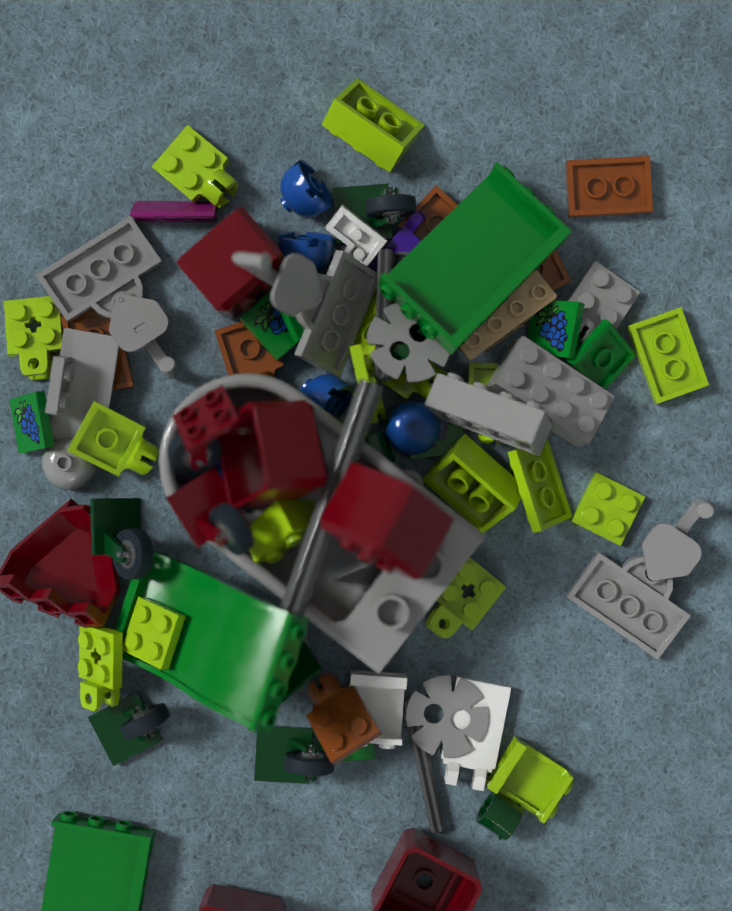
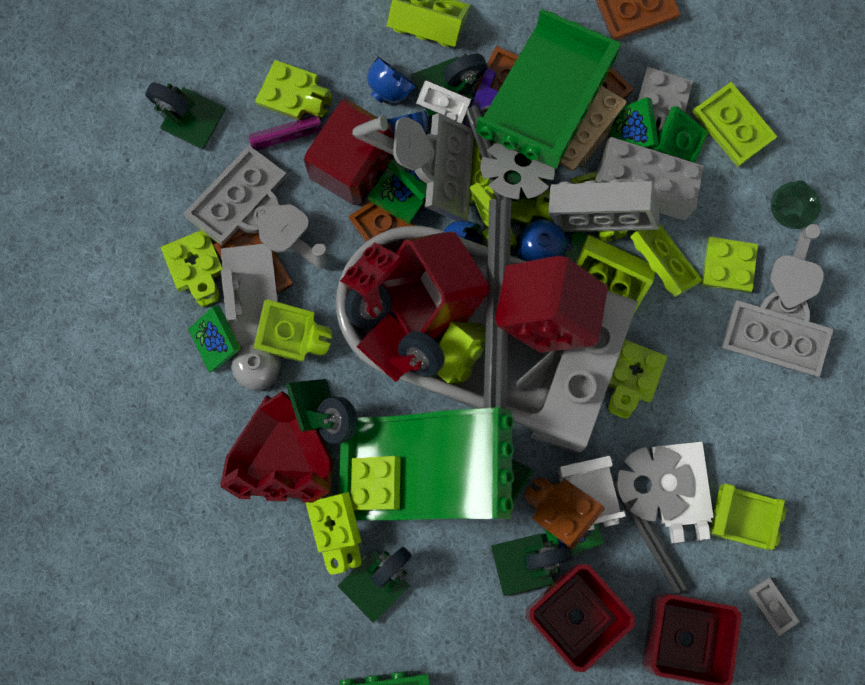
camera: 20 degrees left, 10 degrees down
(76, 160) = (185, 113): none -> dark green plate
(312, 855) = (603, 620): none -> dark red plate
(499, 815) = (732, 556): dark green piece -> none
(524, 875) = (773, 606): none -> light grey plate
(701, 466) = (795, 205): none -> clear green dish

